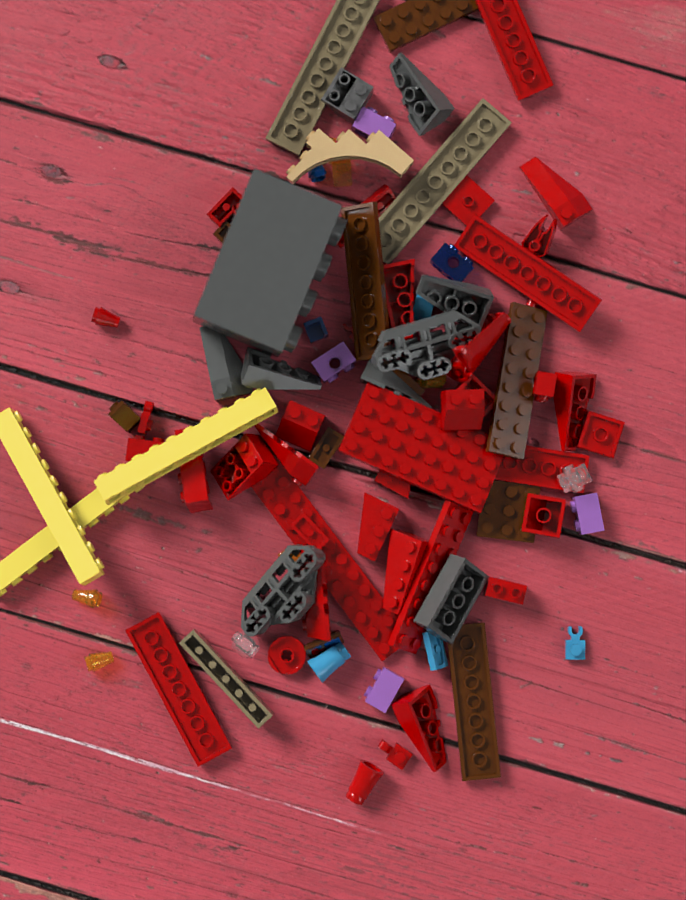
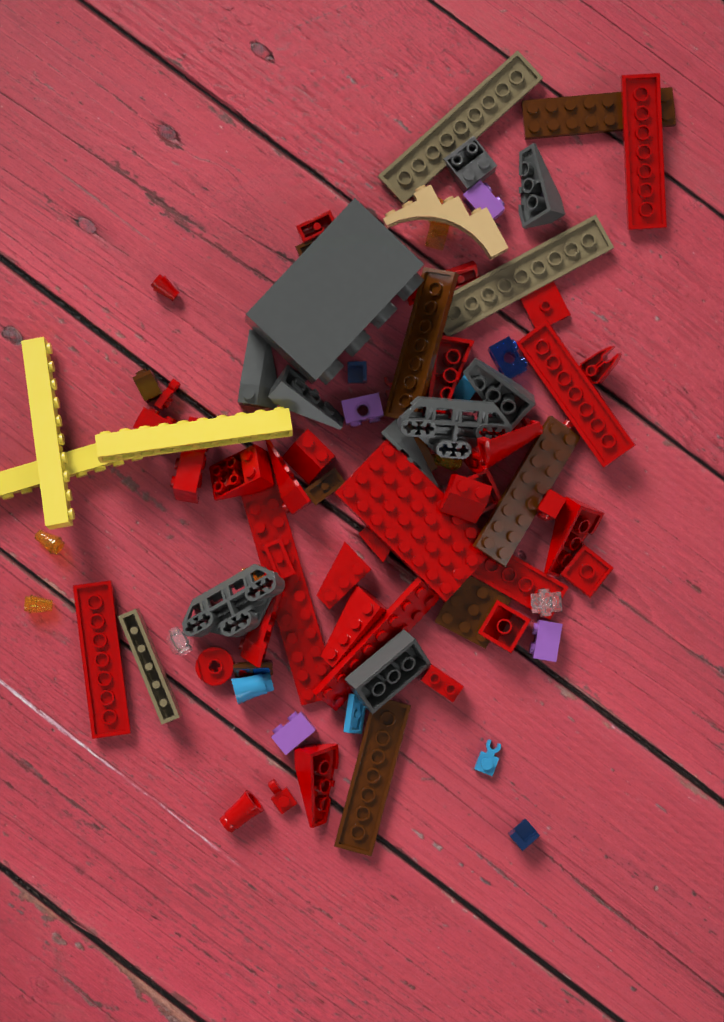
camera: 15 degrees right, 0 degrees up
(317, 174) = (414, 227): blue cone -> none
(557, 195) = (630, 330): red wedge -> none
(635, 702) = (523, 834): none -> dark blue panel

